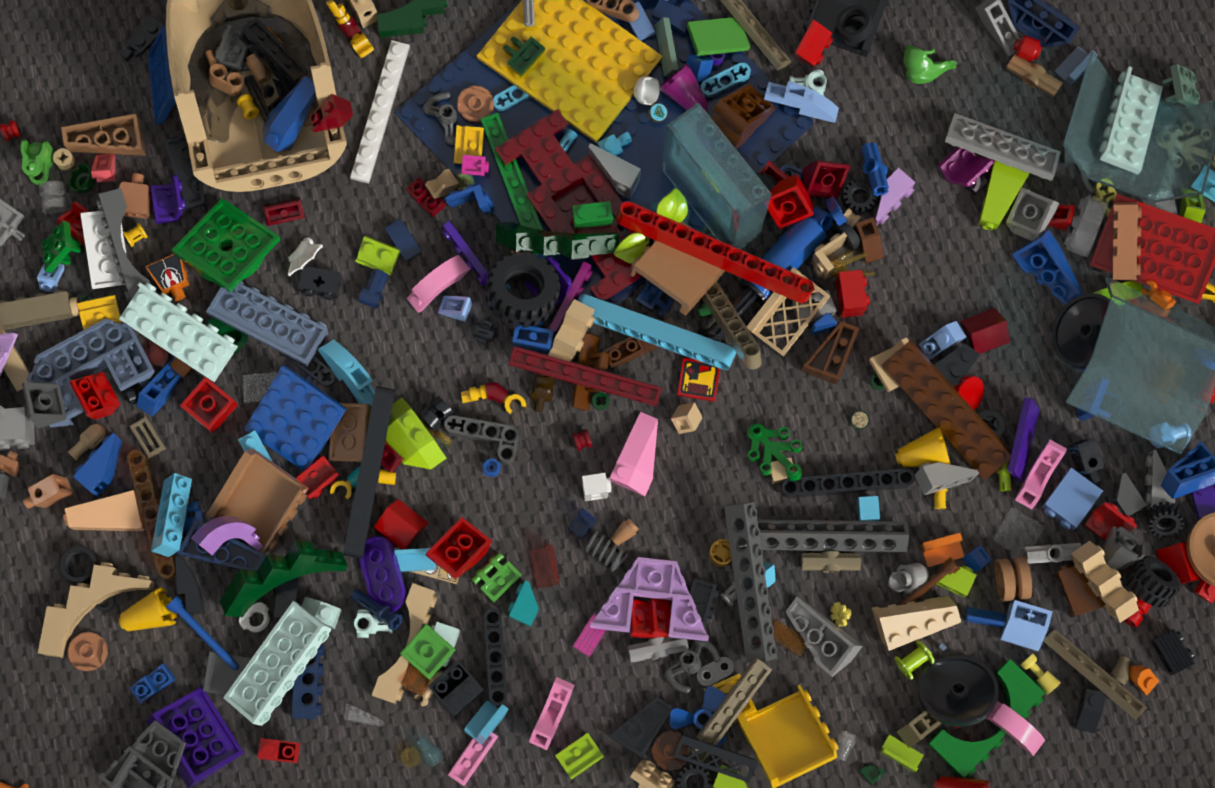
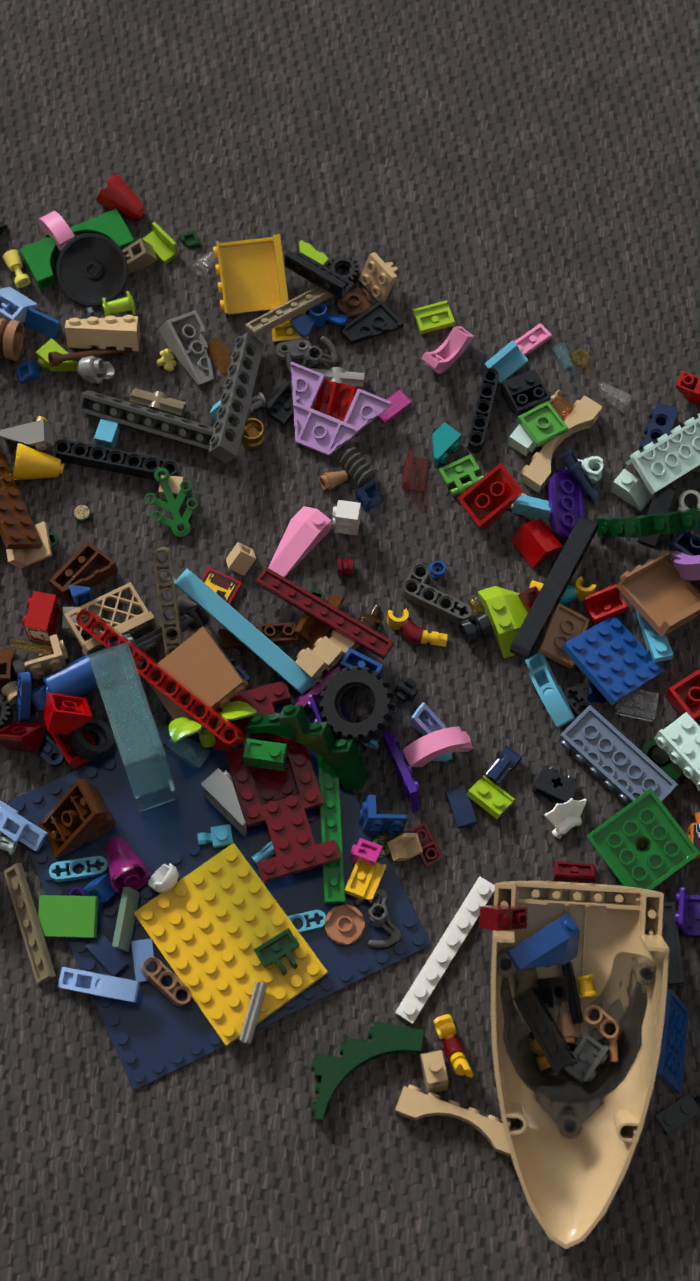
camera: 160 degrees left, 10 degrees down
(658, 112) = (160, 855): tile -> none
(941, 549) = (55, 387): orange panel -> none

